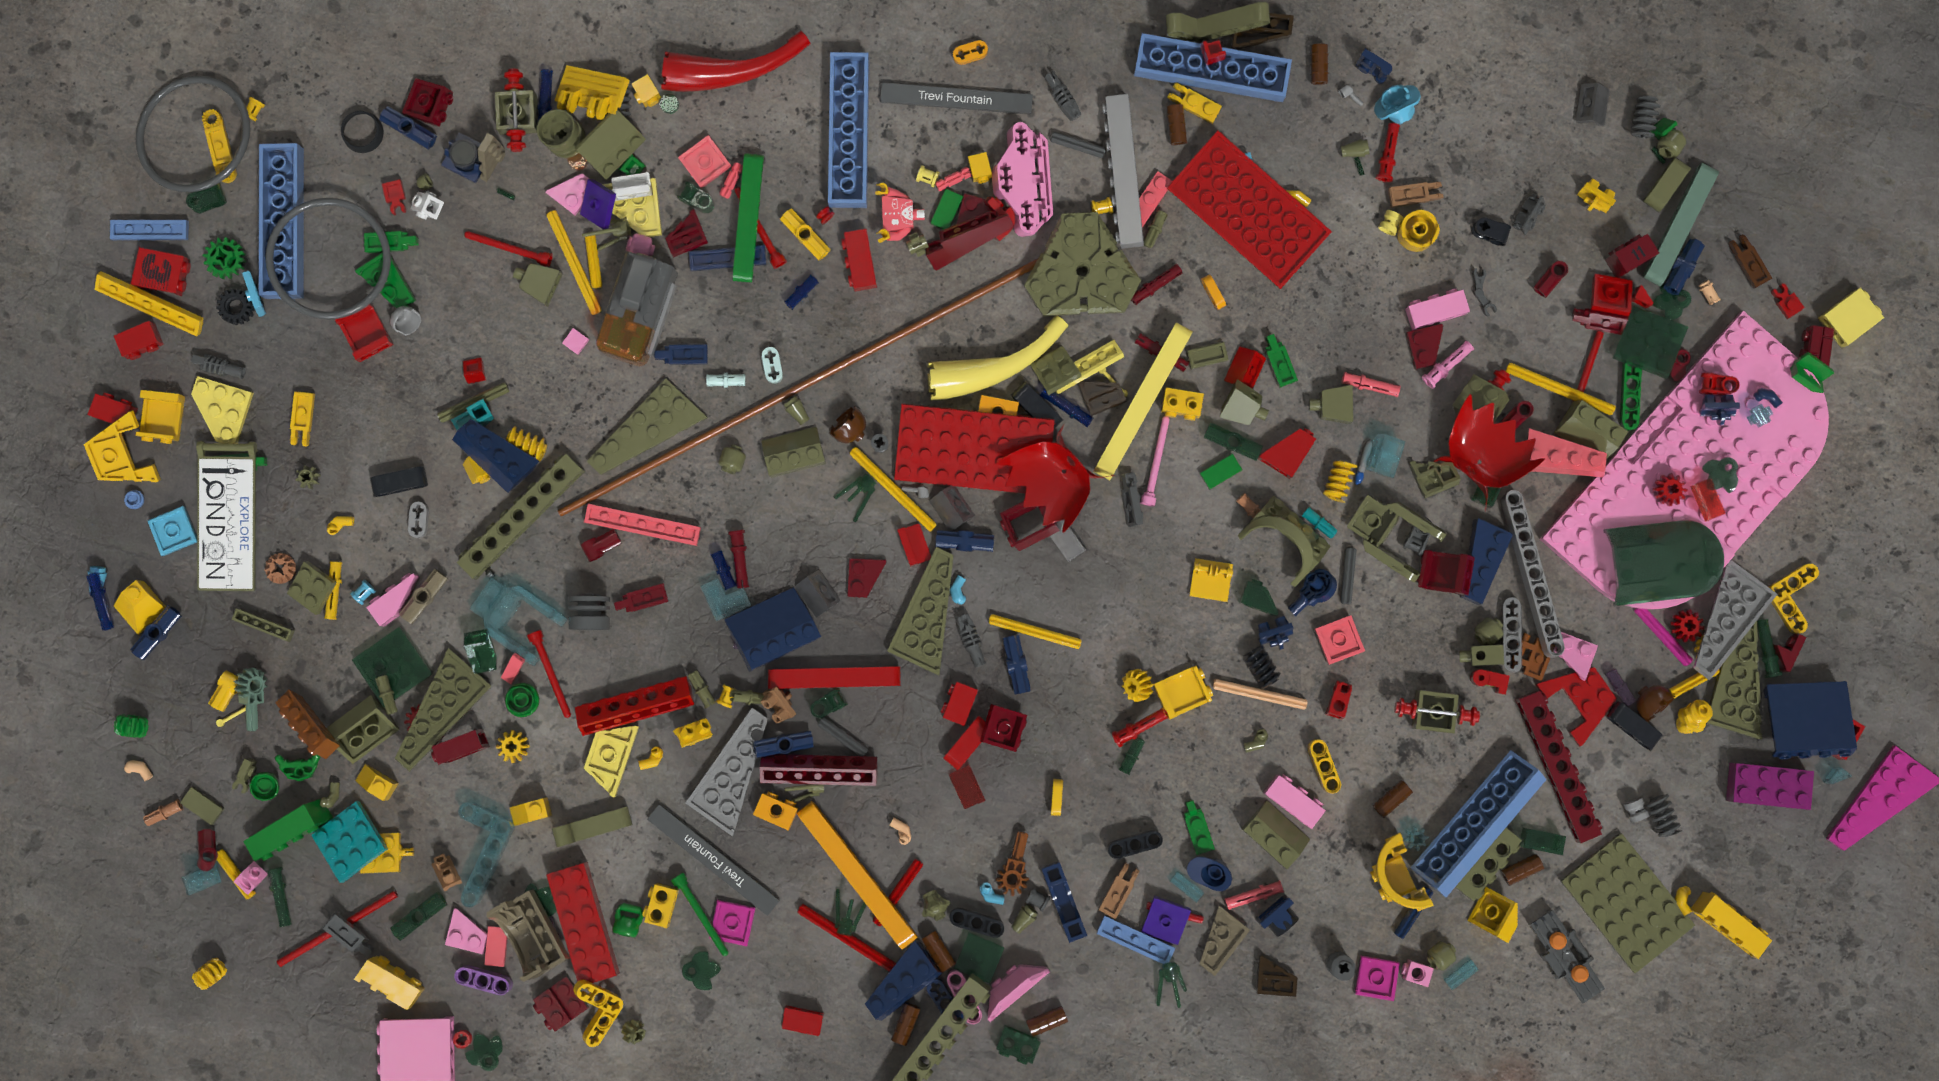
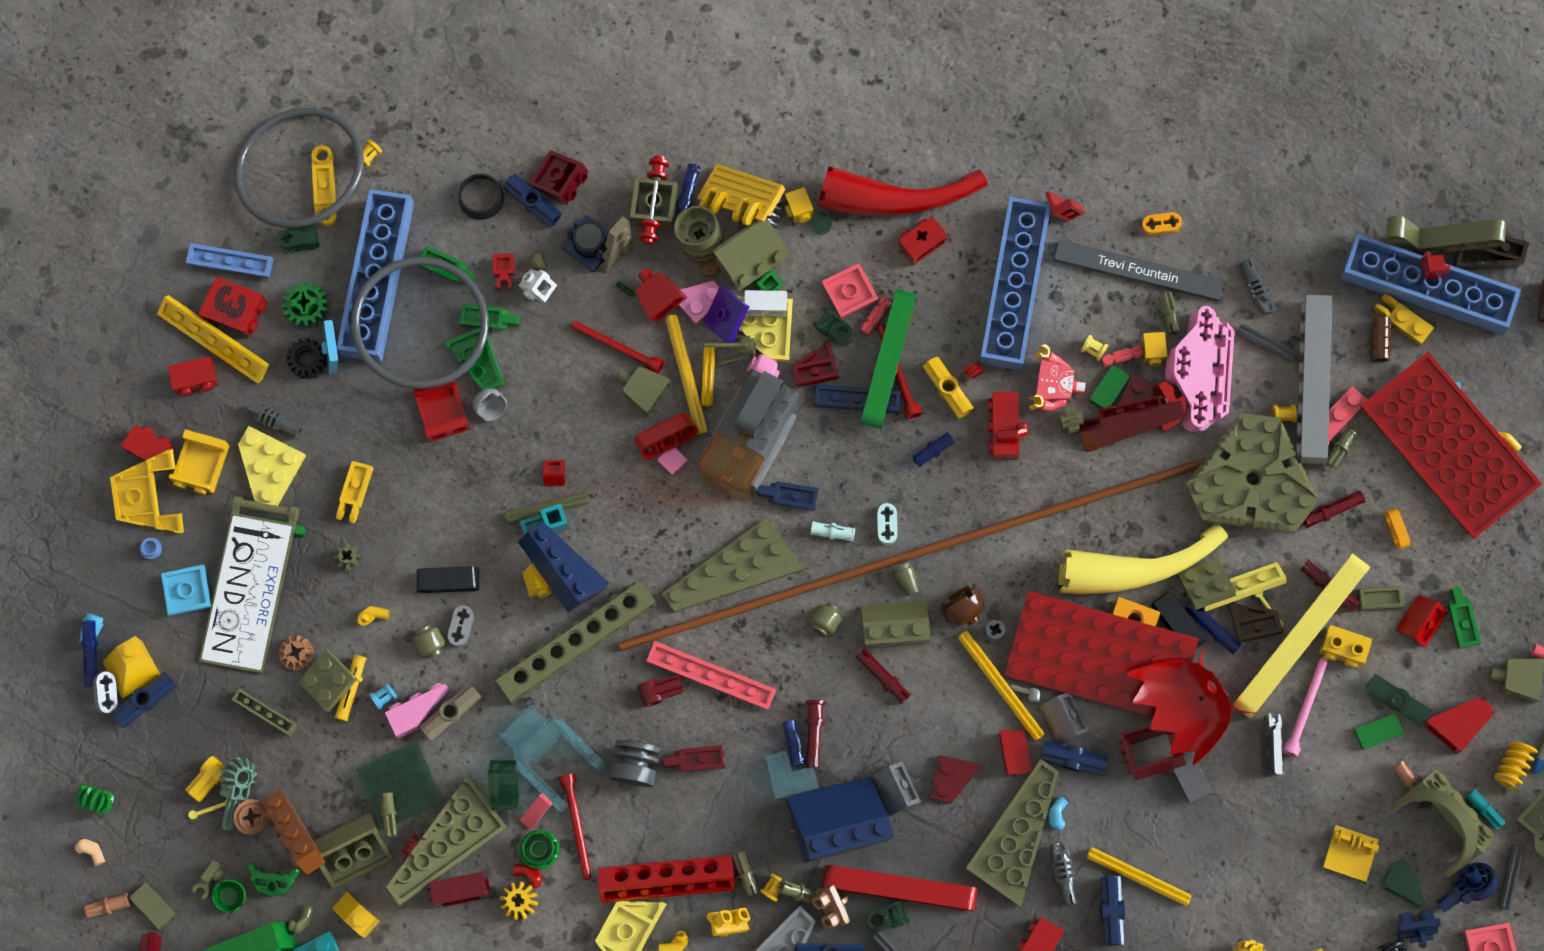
camera: 10 degrees right, 10 degrees down
(116, 634) = (99, 692): none -> beam
(265, 724) = (258, 822): none -> nougat gear
(326, 192) = (433, 253): none -> green hinge
(392, 538) = (428, 641): none -> olive head
(521, 722) = (532, 875): none -> red arm
(526, 444) = (602, 565): yellow piece -> none
(535, 195) = (658, 295): none -> red torso
(565, 321) = (665, 436): none -> red beam
(758, 114) = (917, 250): none -> red brick
(797, 503) = (883, 676): none -> dark red pin
(865, 484) = (970, 674): clear green plant -> none
(867, 268) = (1010, 435): none -> red arm
(879, 54) = (1065, 210): none -> red panel
(989, 132) = (1170, 313): none -> olive axle
(1243, 405) = (1415, 659): torso -> none

